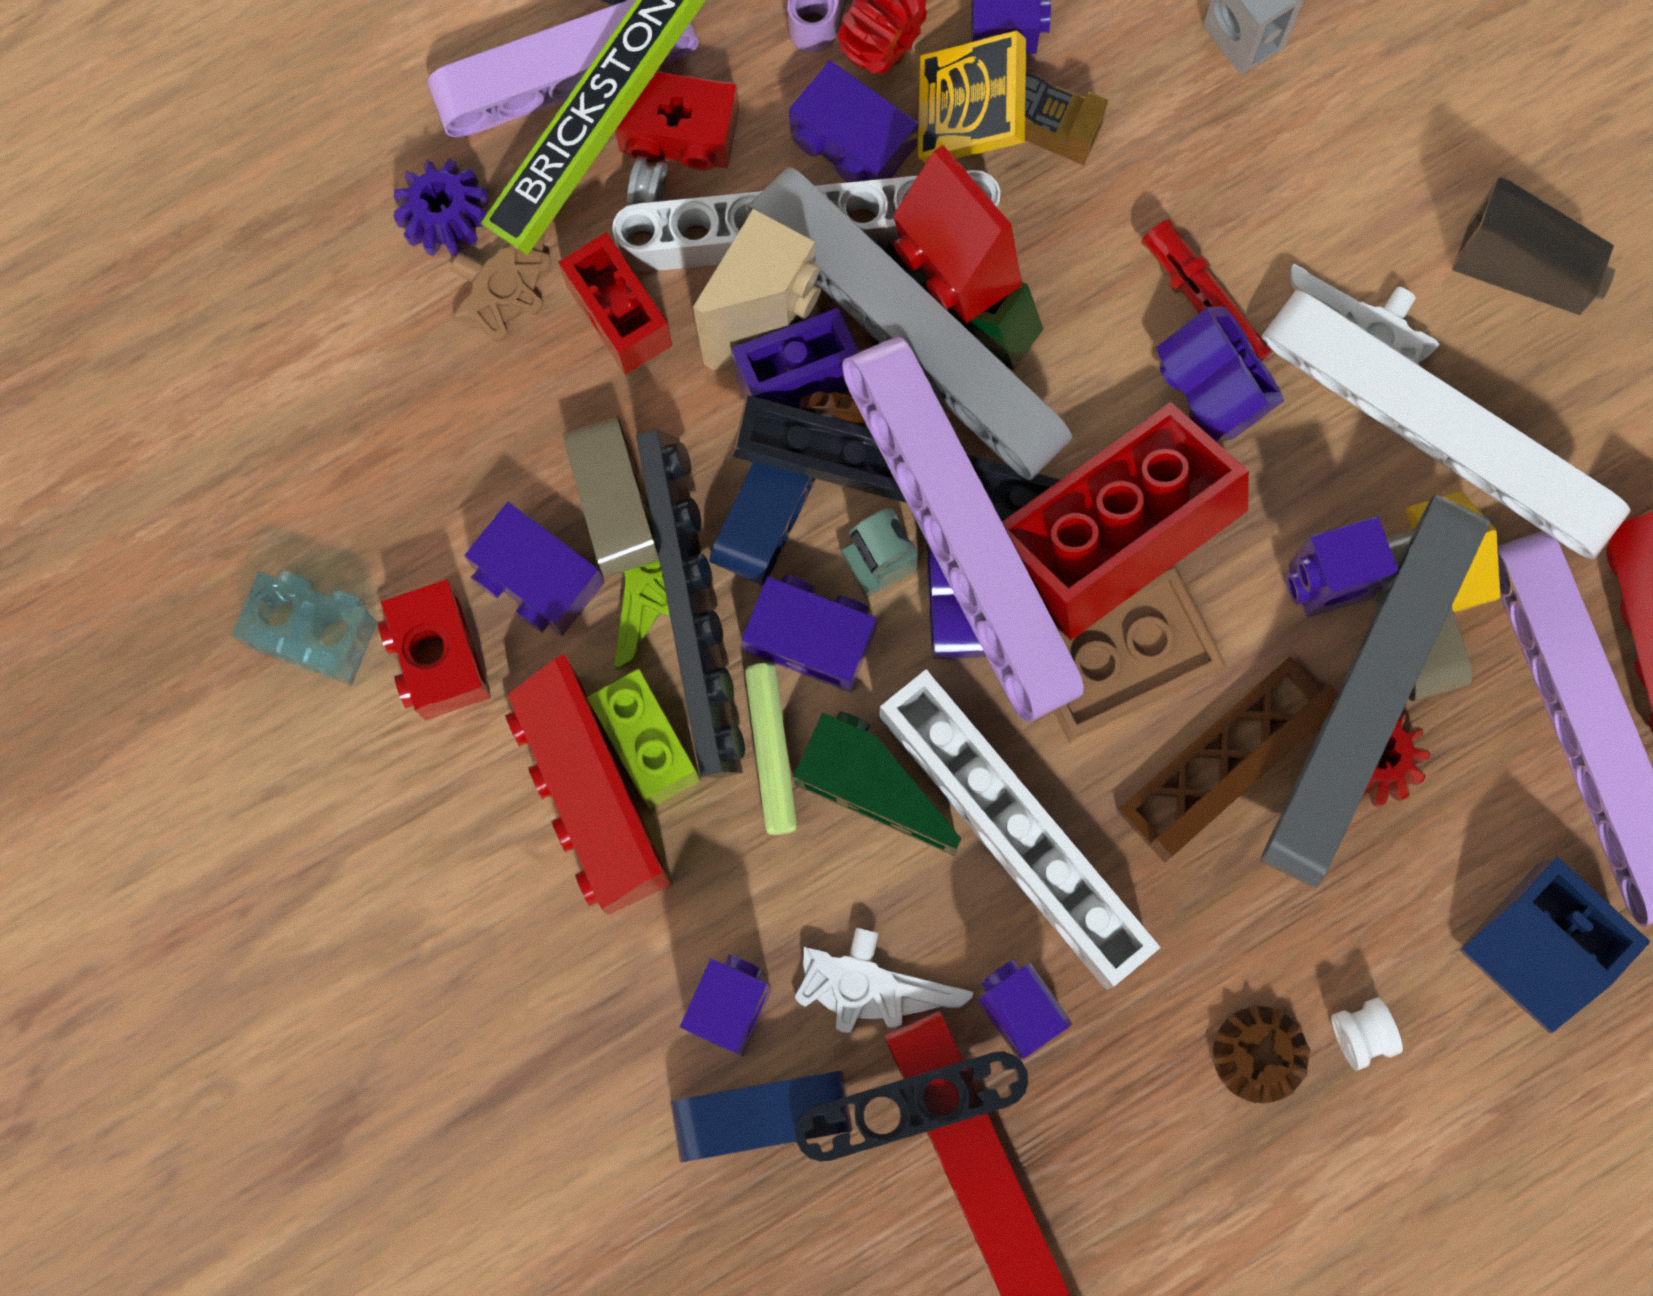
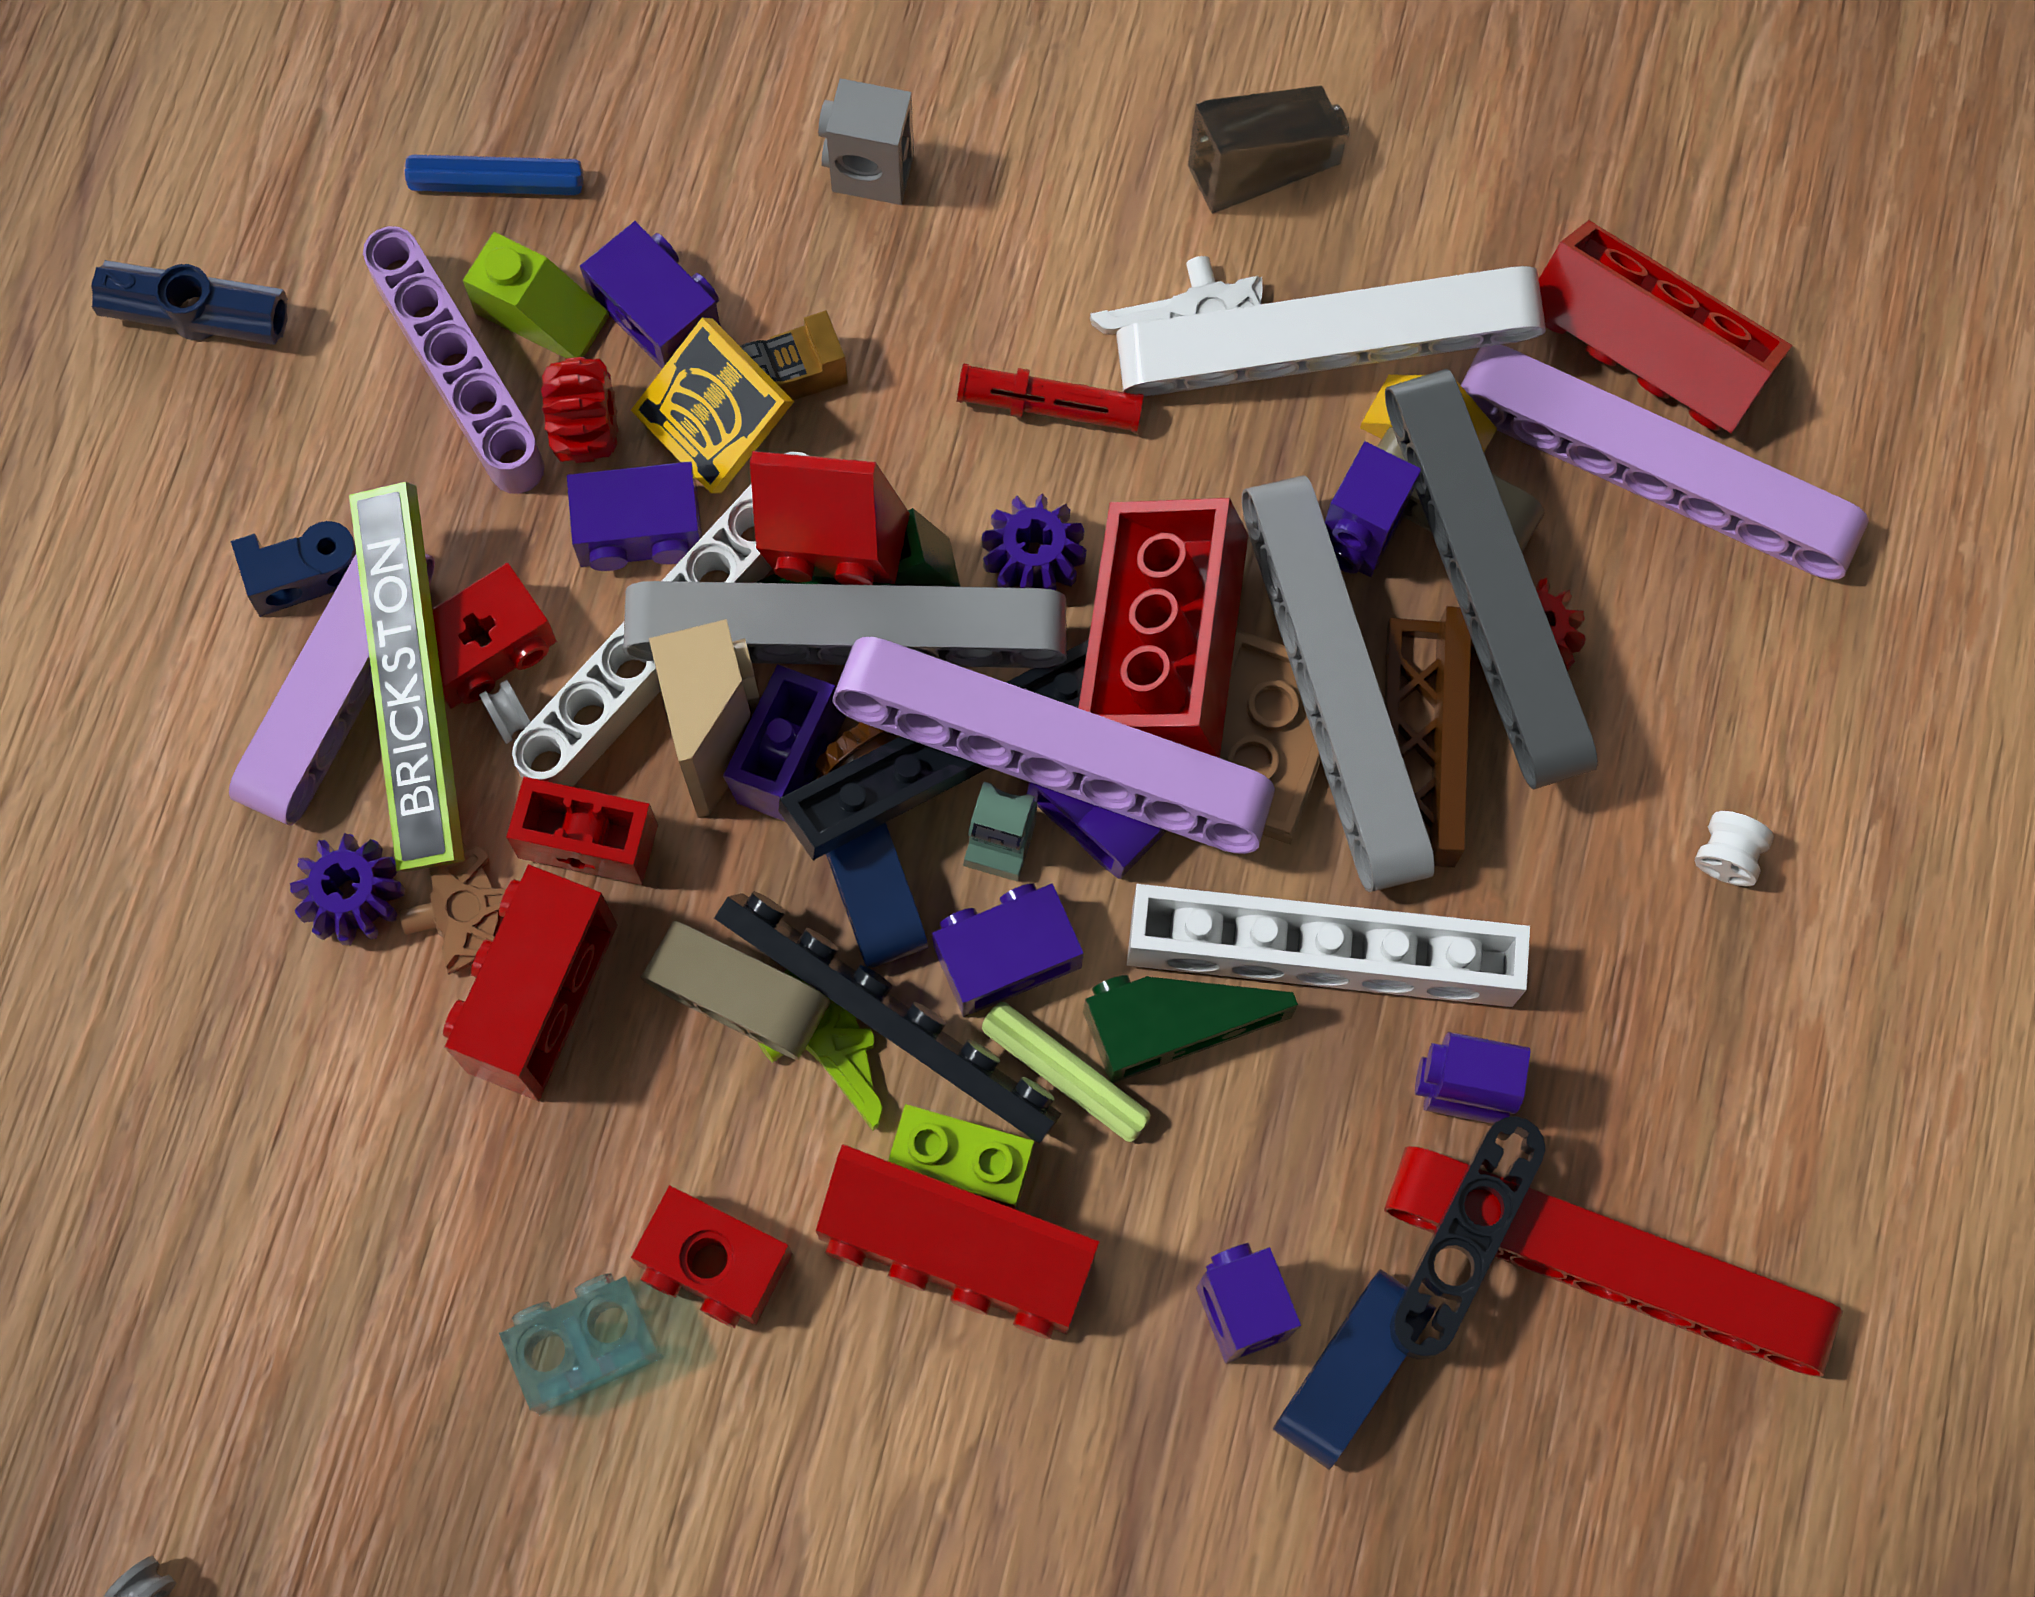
camera: 50 degrees left, 5 degrees down
(486, 370) = (530, 981): none -> red brick
(534, 570) = (729, 1113): dark purple brick -> none
(861, 989) = (1330, 1190): white piece -> none
(1093, 368) = (1025, 525): none -> dark purple gear
(1202, 665) = (1337, 684): none -> light grey beam
(1218, 374) = (1123, 448): dark purple brick -> none
(1235, 1065) = (1664, 968): reddish brown gear -> none
(1554, 944) = (1798, 649): dark blue slope -> none

